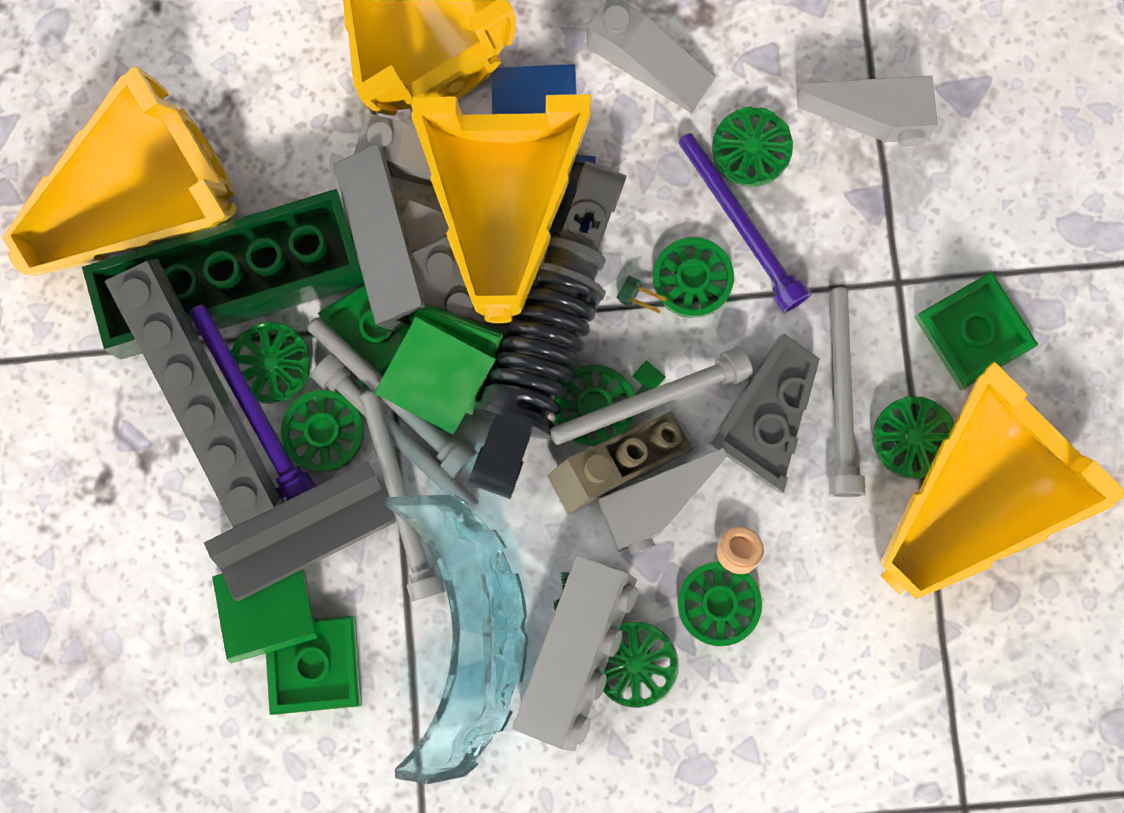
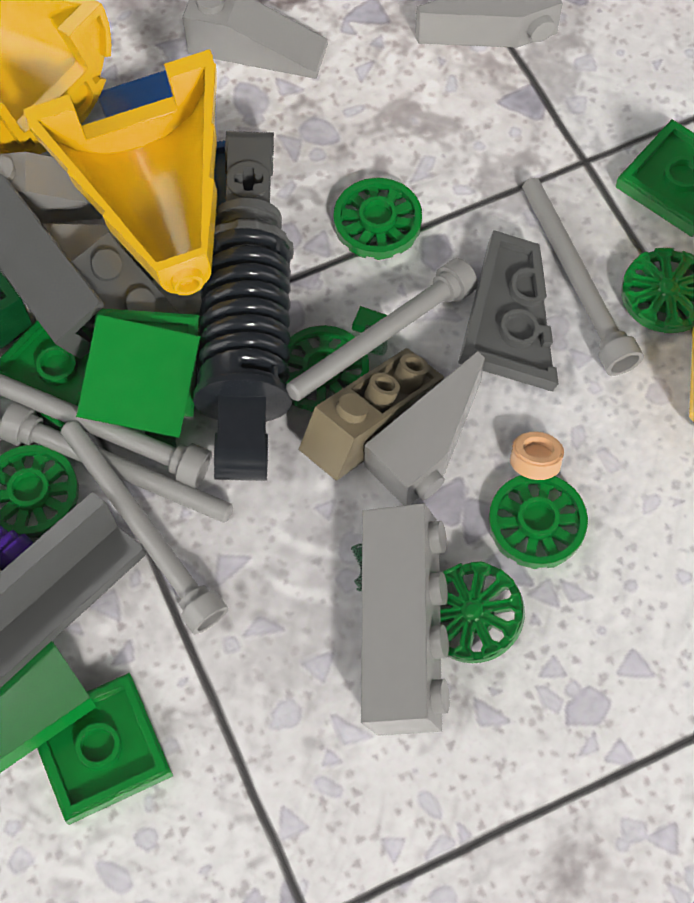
camera: 25 degrees left, 15 degrees down
(486, 636) = (285, 626): clear light blue windscreen -> none
(631, 289) = (318, 246): clear green piece -> none
(752, 146) = (389, 85): green wheel -> none
(788, 290) = (480, 196): dark purple piece -> none

